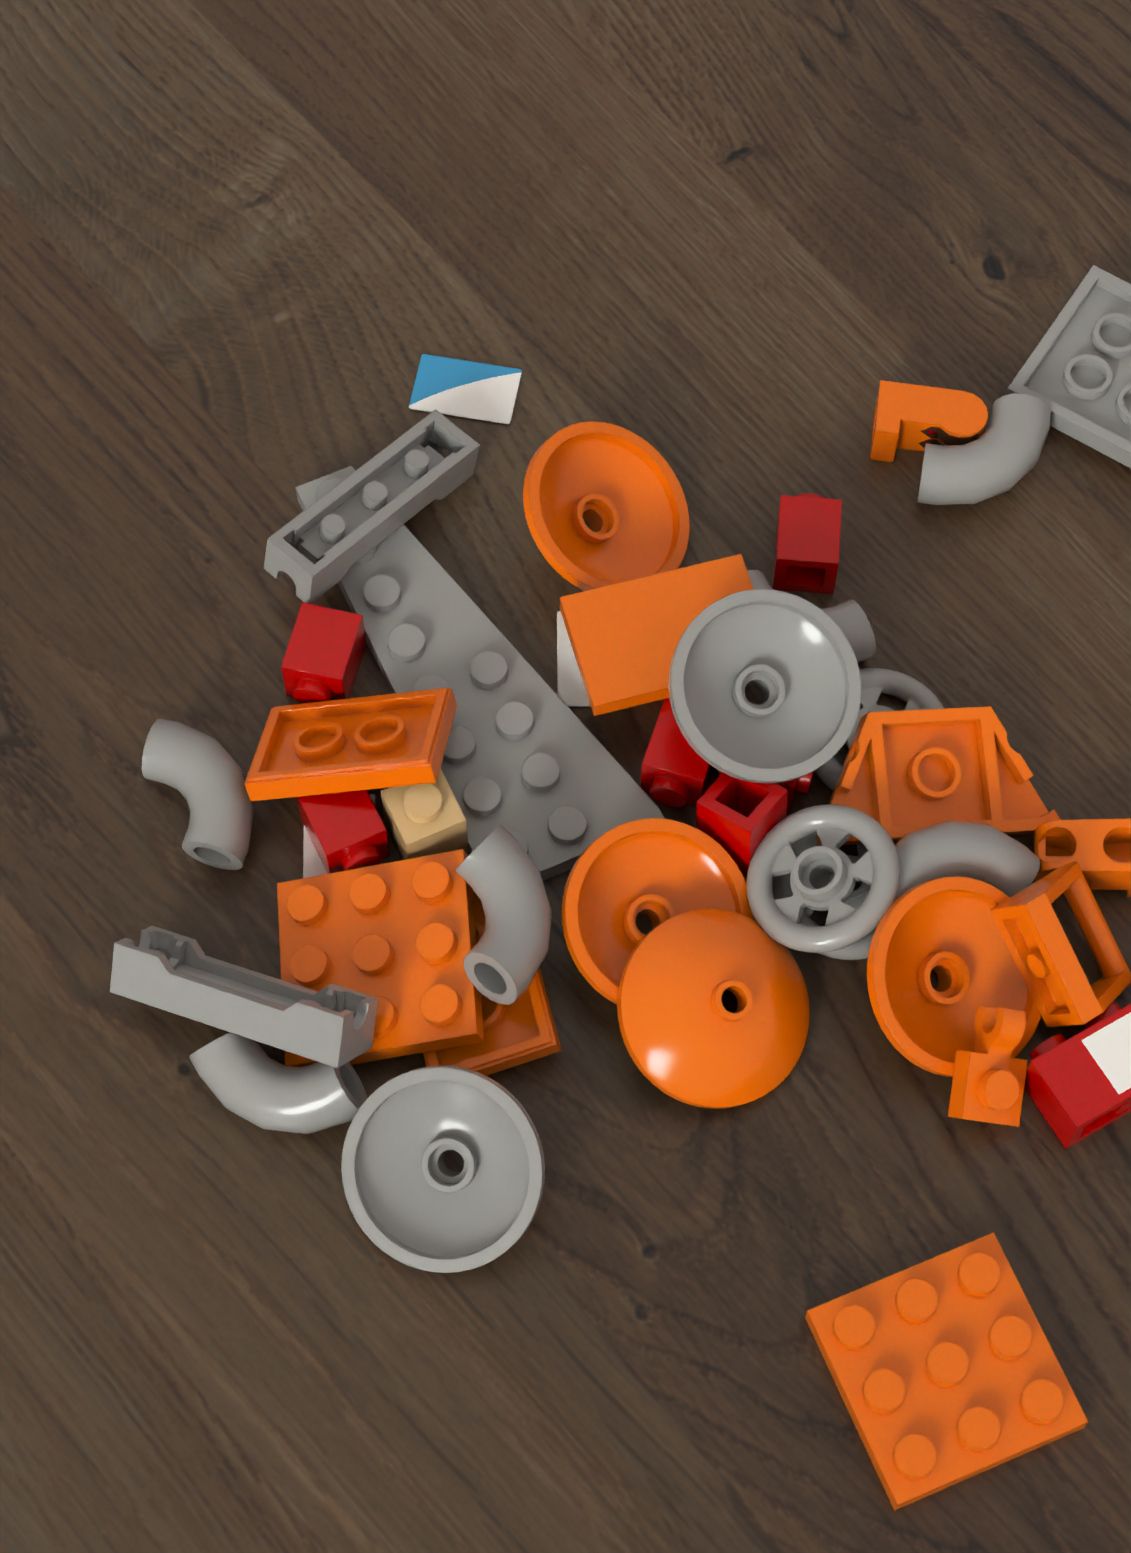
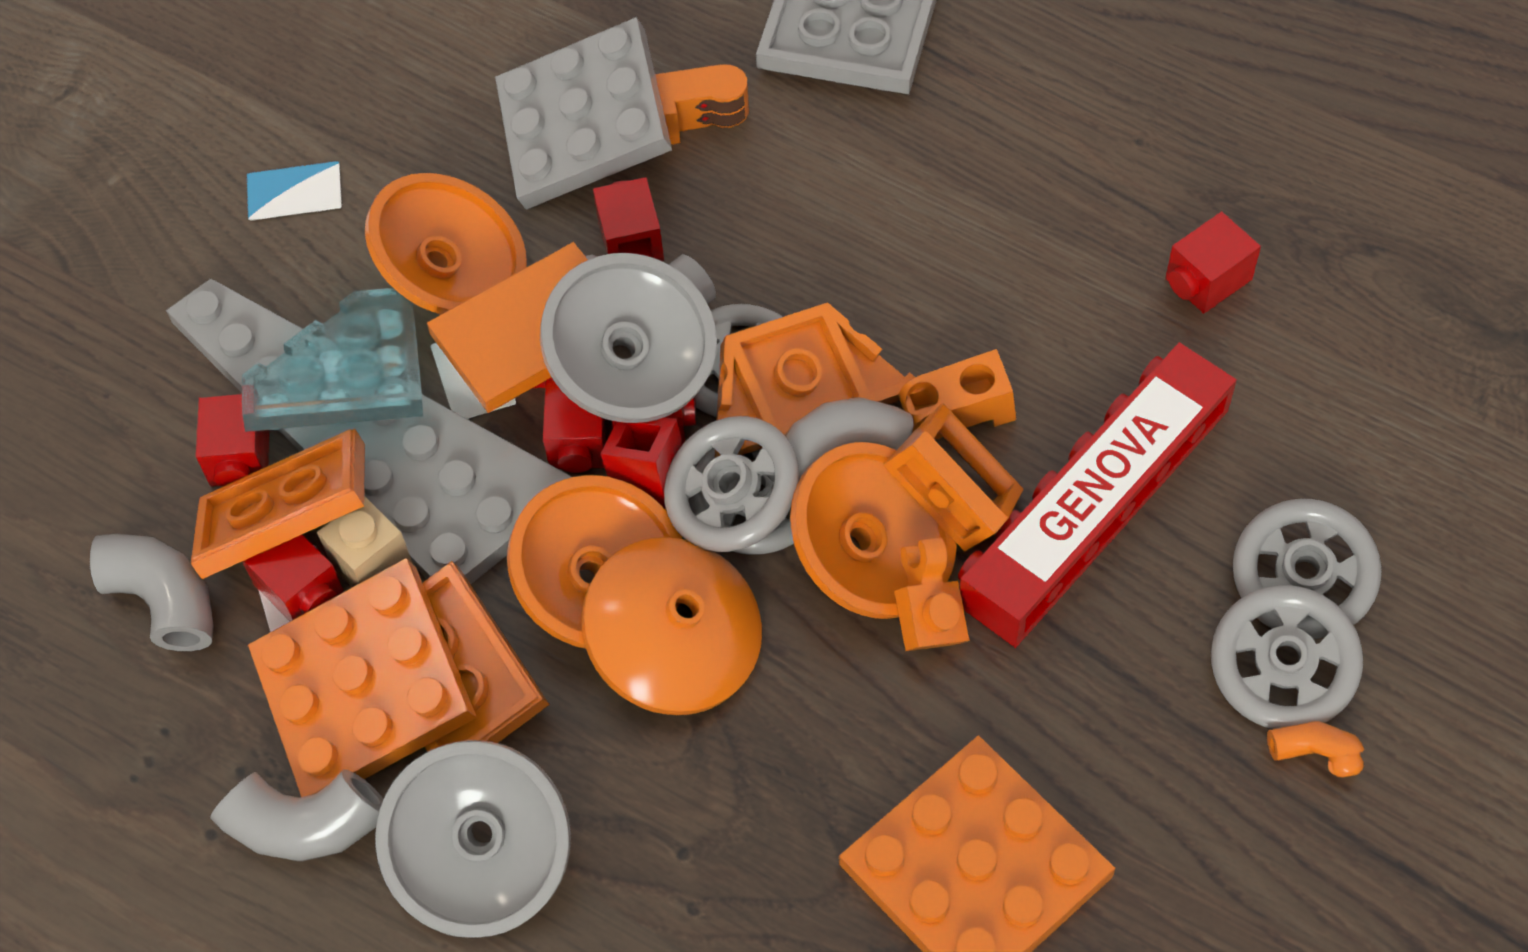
camera: 15 degrees left, 5 degrees down
(179, 978) = (182, 751): light grey piece -> none
(370, 505) = (236, 302): light grey piece -> none
(457, 616) = (341, 371): none -> clear light blue plate
(515, 915) = (471, 600): light grey cylinder -> none
(797, 400) = (582, 113): none -> light grey plate
(992, 461) = (761, 116): light grey cylinder -> none

